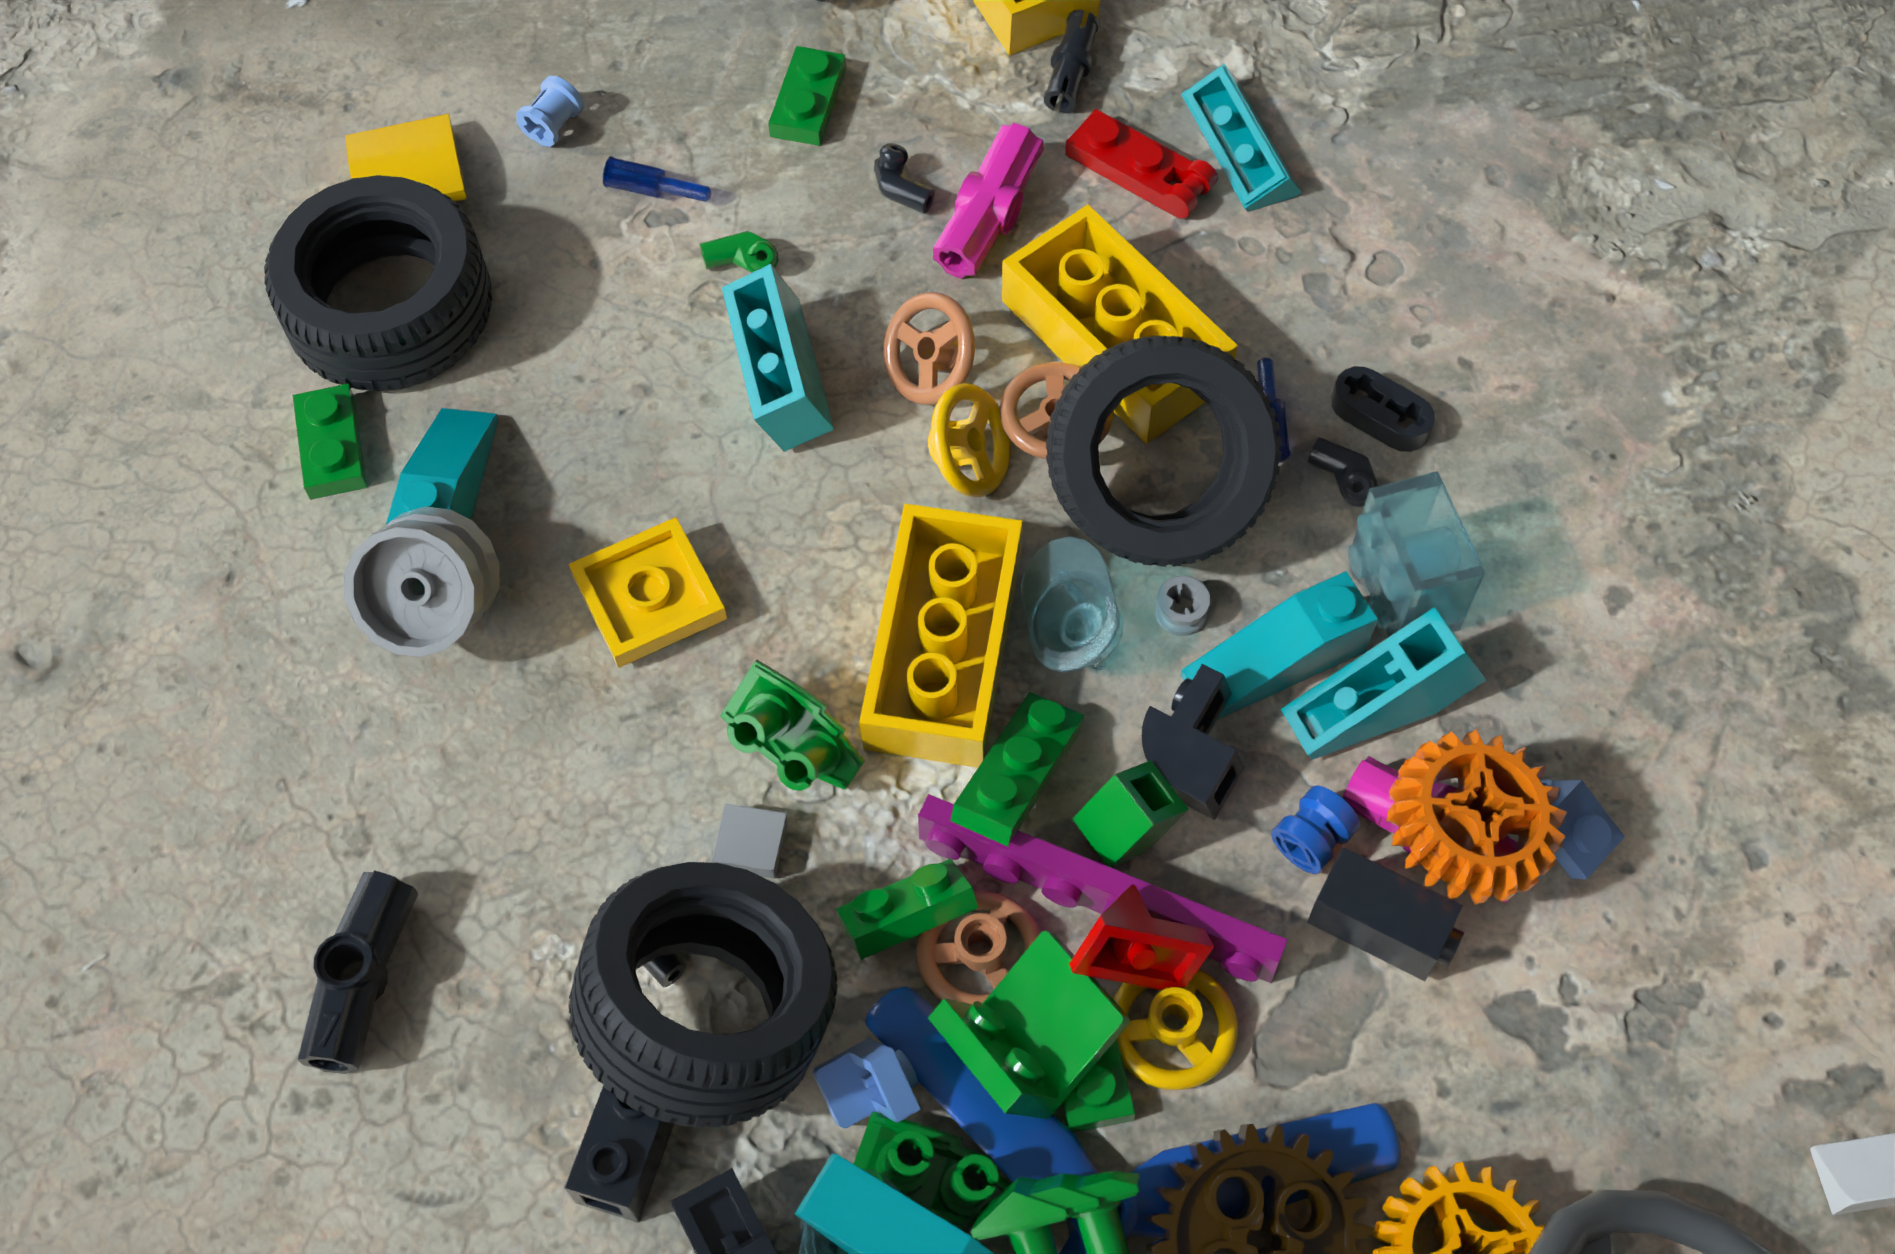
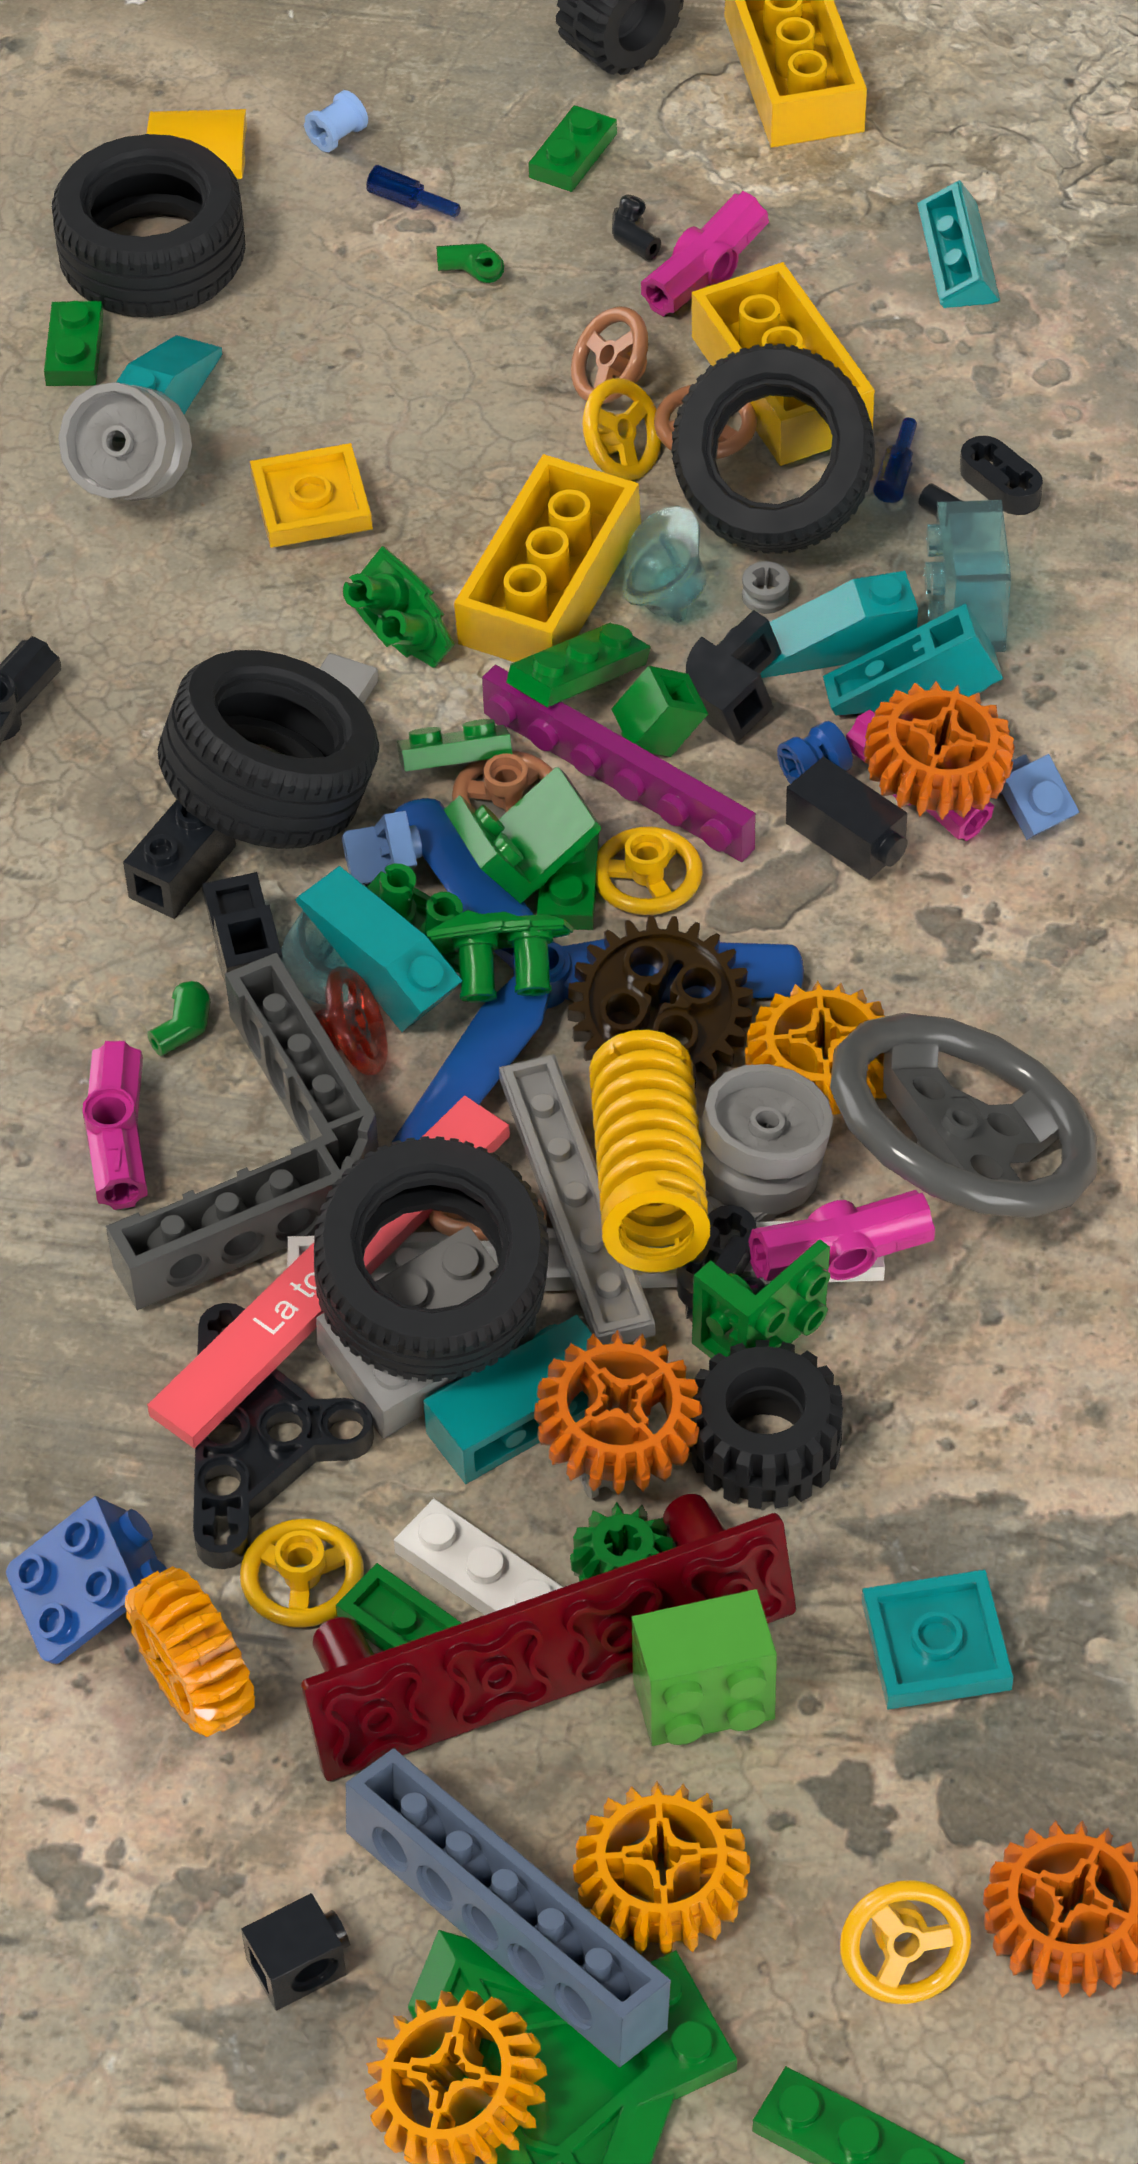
camera: 15 degrees right, 10 degrees down
(777, 358) = (474, 339): teal brick -> none
(1071, 61) = (822, 158): black pin -> none
(1140, 164) = (856, 251): red plate -> none
(1140, 949) = (627, 789): red slope -> none

